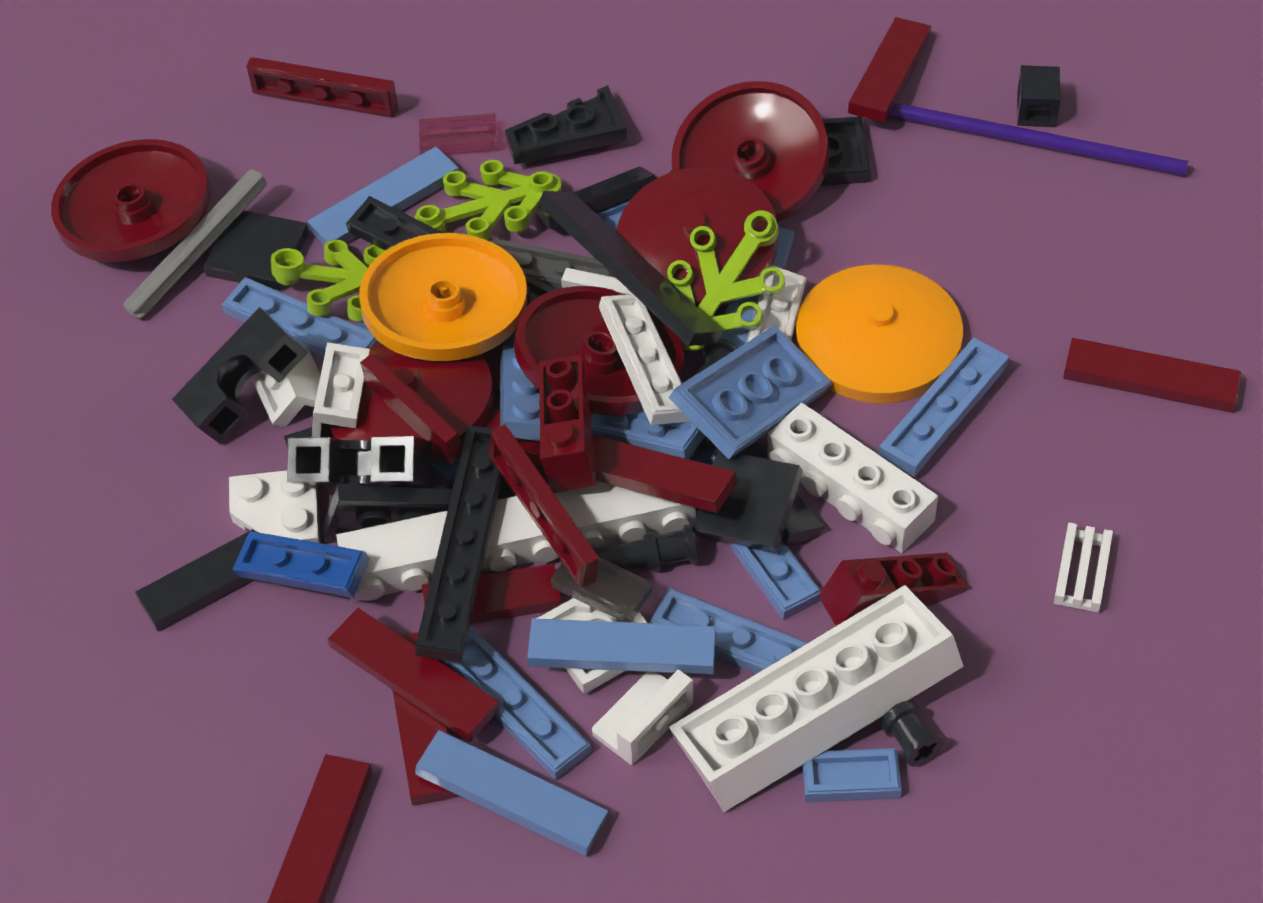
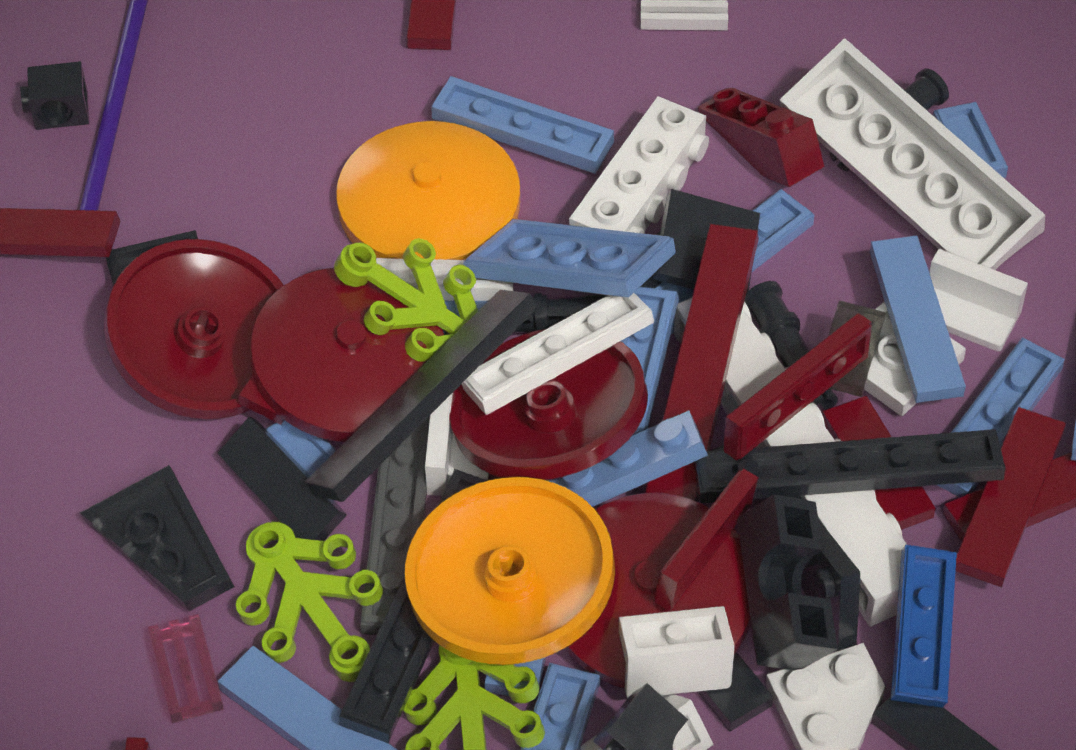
camera: 105 degrees left, 0 degrees up
(566, 425) = (690, 378): dark red slope -> none
(737, 638) = (850, 265): medium blue tile -> none

